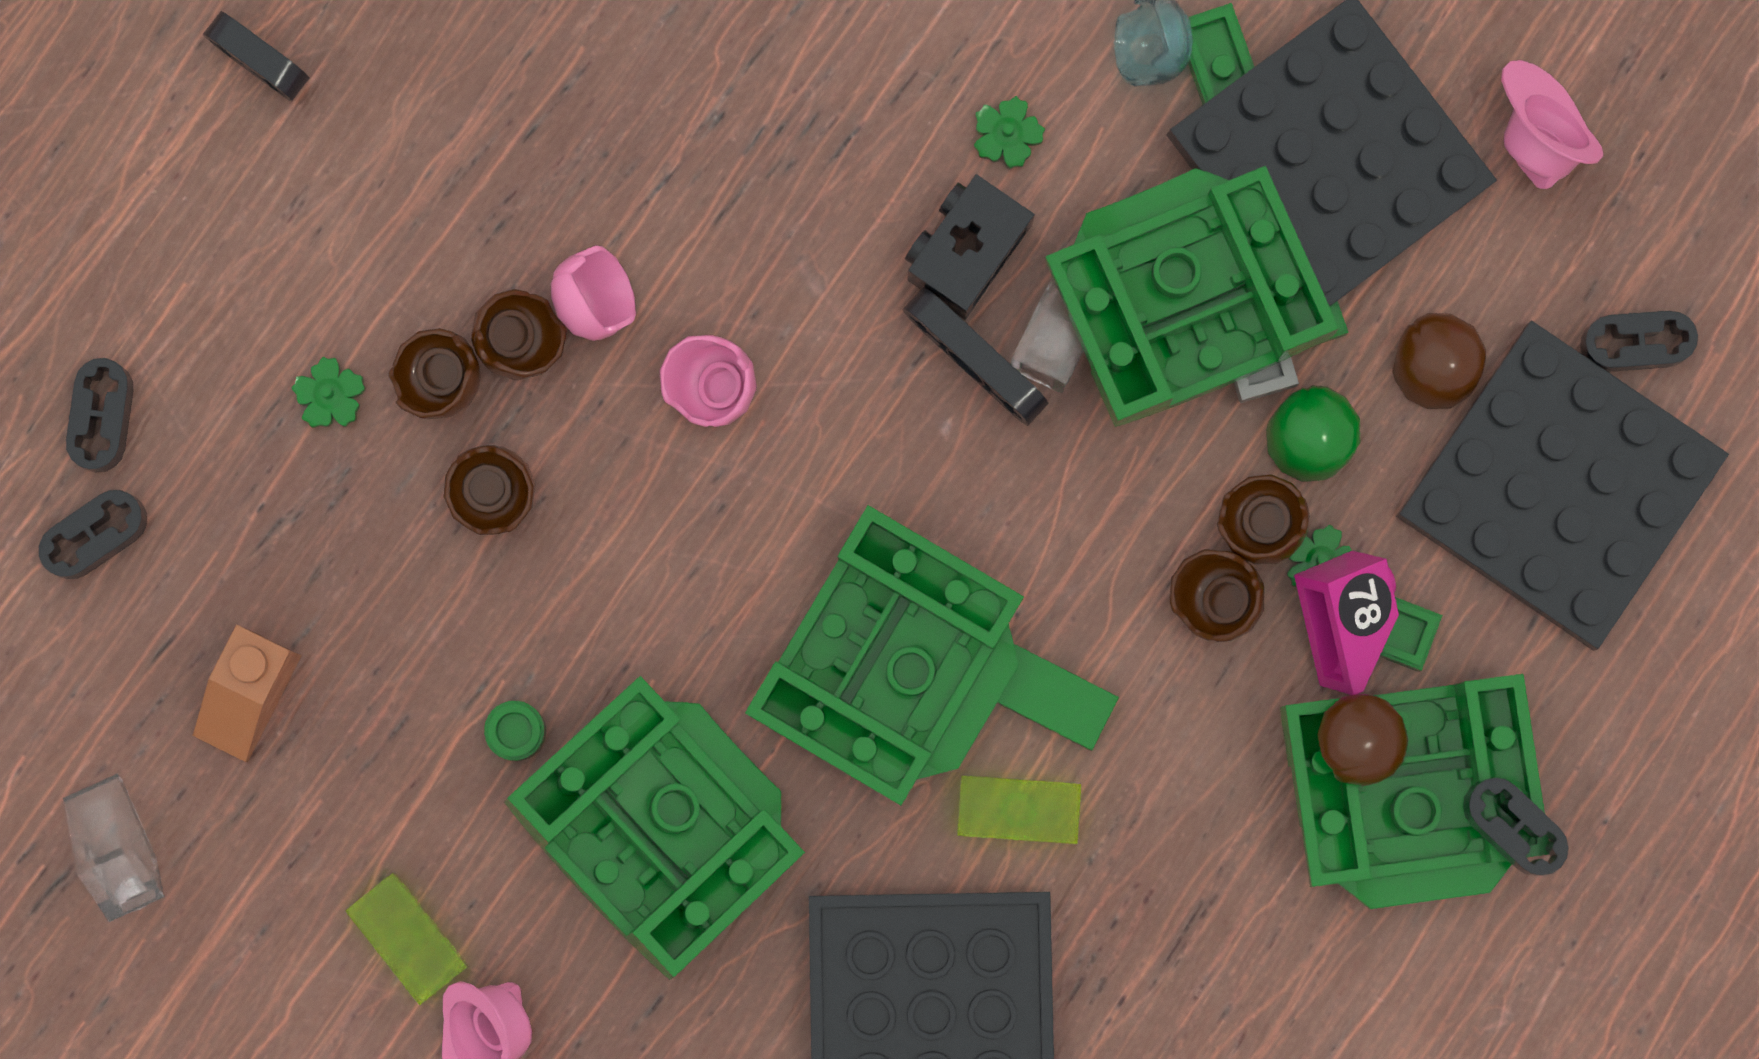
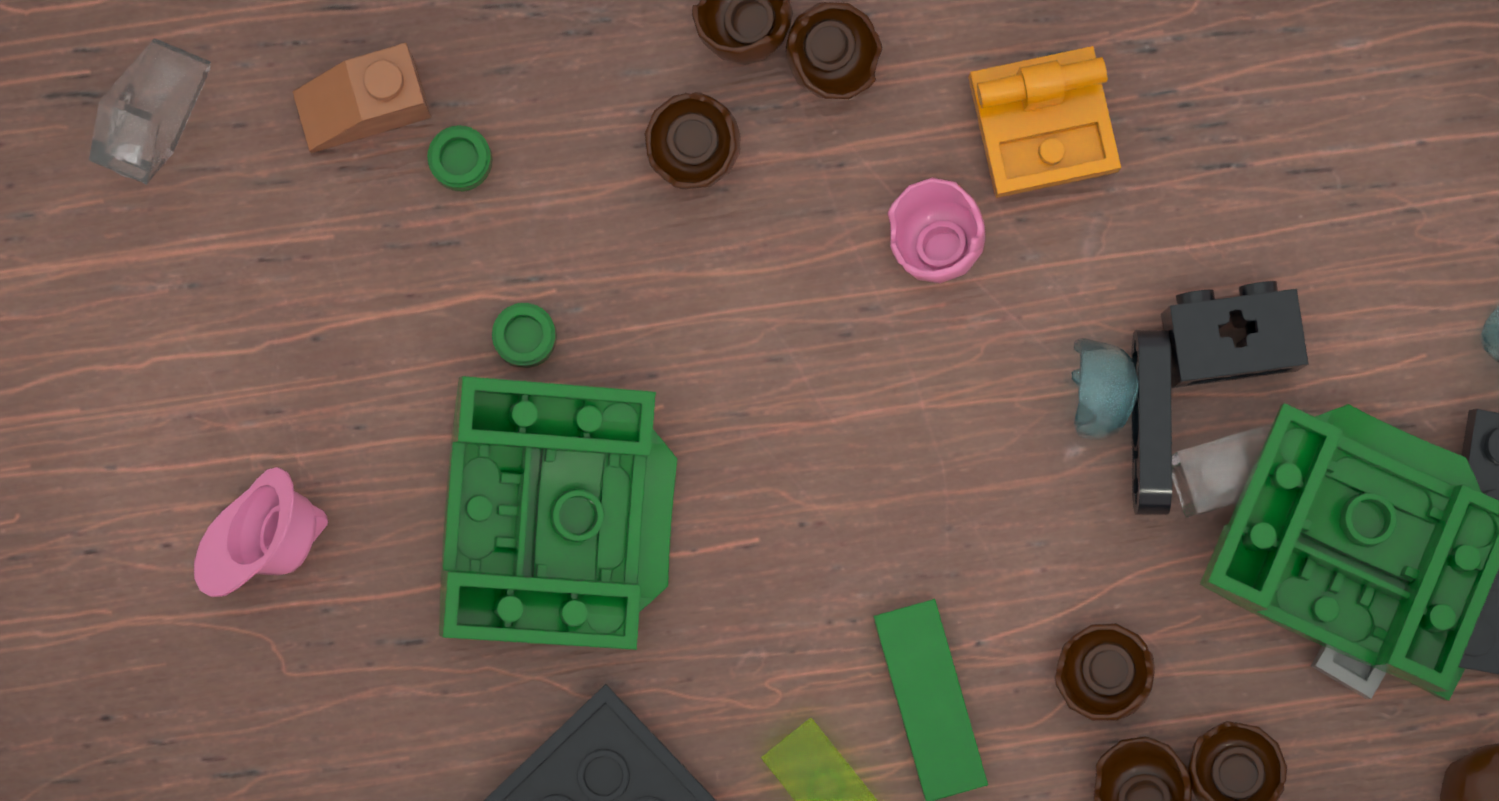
camera: 45 degrees right, 0 degrees up
(349, 662) = (459, 158): none -> green tile
(407, 938) = (286, 401): clear neon green plate -> none
(593, 294) = (919, 79): bright pink hair -> none
(702, 236) = (1045, 121): none -> light orange plate
(893, 660) = (851, 579): green slope -> none
(924, 367) = (1105, 389): none -> clear light blue hair
(1007, 132) = (1351, 284): green plant -> none
(1116, 546) = (1105, 672): none -> reddish brown hair
(1313, 434) = (1341, 747): green hair -> none

